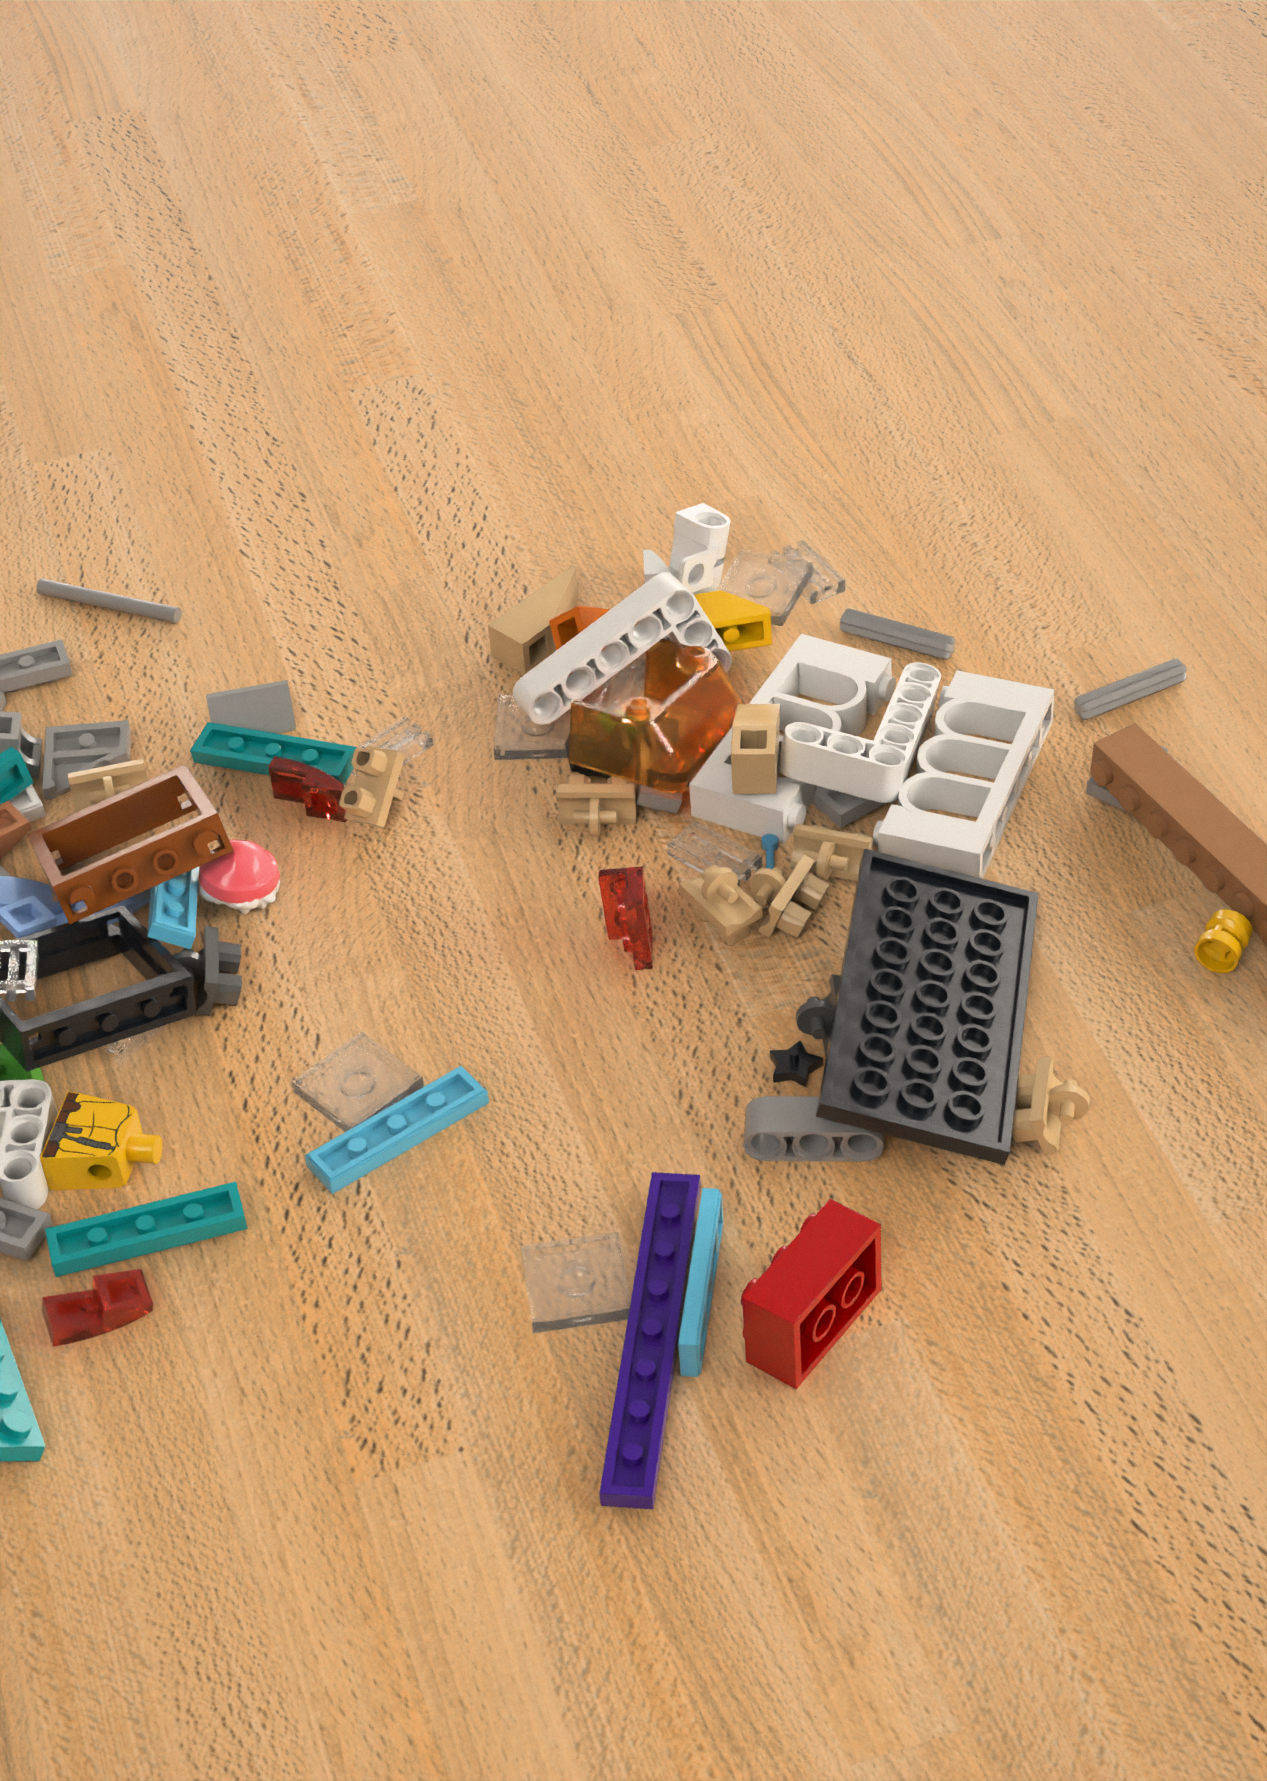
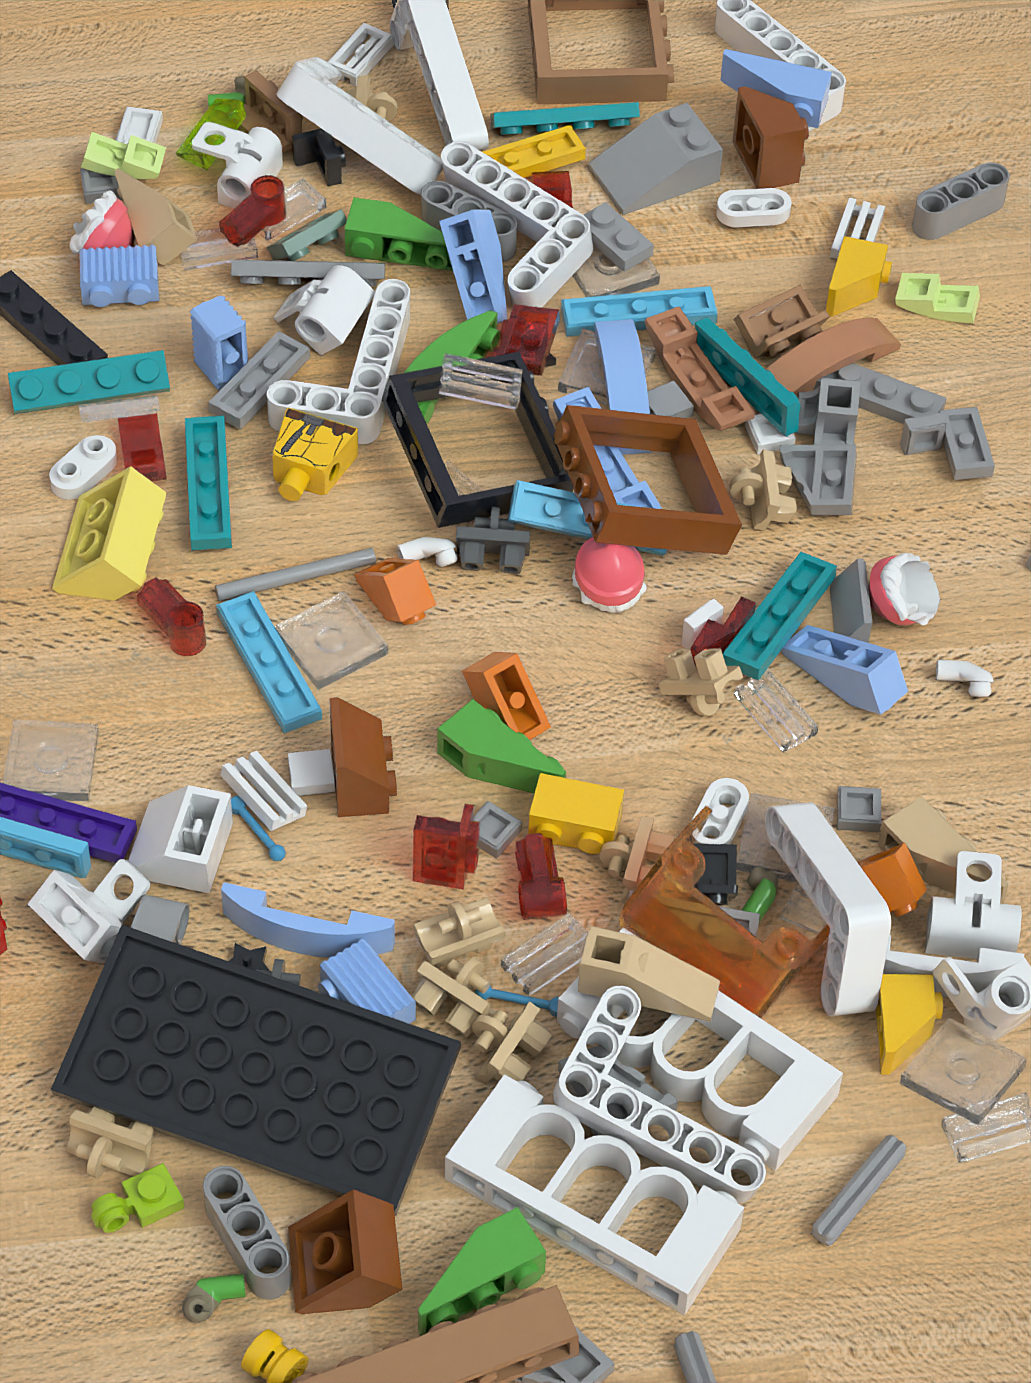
camera: 95 degrees right, 10 degrees up
(21, 691) = (923, 433): none -> light grey tile
(30, 1341) = (119, 408): none -> clear tile
(120, 1355) = (88, 462): none -> white plate
(216, 1025) = (429, 546): none -> white arm
(233, 670) = (903, 590): none -> white hair
(249, 1297) = (111, 538): none -> light yellow slope
(270, 1133) = (295, 574): none -> light grey bar
(284, 1034) = (397, 589): none -> orange slope
(298, 804) = (695, 622): none -> white tile
(318, 635) = (965, 671): none -> white arm
(336, 695) = (850, 668): none -> light blue slope
(365, 1203) = (174, 616): none -> clear red piece
(413, 926) = (504, 687): none -> orange slope
(486, 926) = (491, 751): none -> bright green slope
(488, 684) = (858, 809): none -> light grey tile
(528, 763) = (723, 821): none -> white plate
(536, 1014) = (360, 761): none -> dark orange slope
(542, 1062) = (311, 772): none -> white tile
(554, 853) = (576, 812): none -> yellow brick
(577, 918) = (496, 829): none -> light grey tile
(577, 1090) = (269, 788): none -> white tile
(596, 1113) = (276, 851): none -> dark azure hinge
(605, 573) = (974, 915): none -> white piece
(653, 852) = (540, 888): none -> clear red piece
(666, 1124) = (183, 838): none -> white slope
(742, 1051) = (303, 933): none -> light blue slope
(779, 1192) = (88, 918): none -> white piece
(803, 958) = (365, 981): none -> light blue brick
(1073, 829) = (491, 1263): none -> bright green slope
(1096, 1078) = (148, 1196): none -> lime plate
(1099, 918) = (345, 1255): none -> dark orange slope
(1100, 987) = (251, 1251): none -> light grey beam
(1169, 1009) = (209, 1293): none -> arm

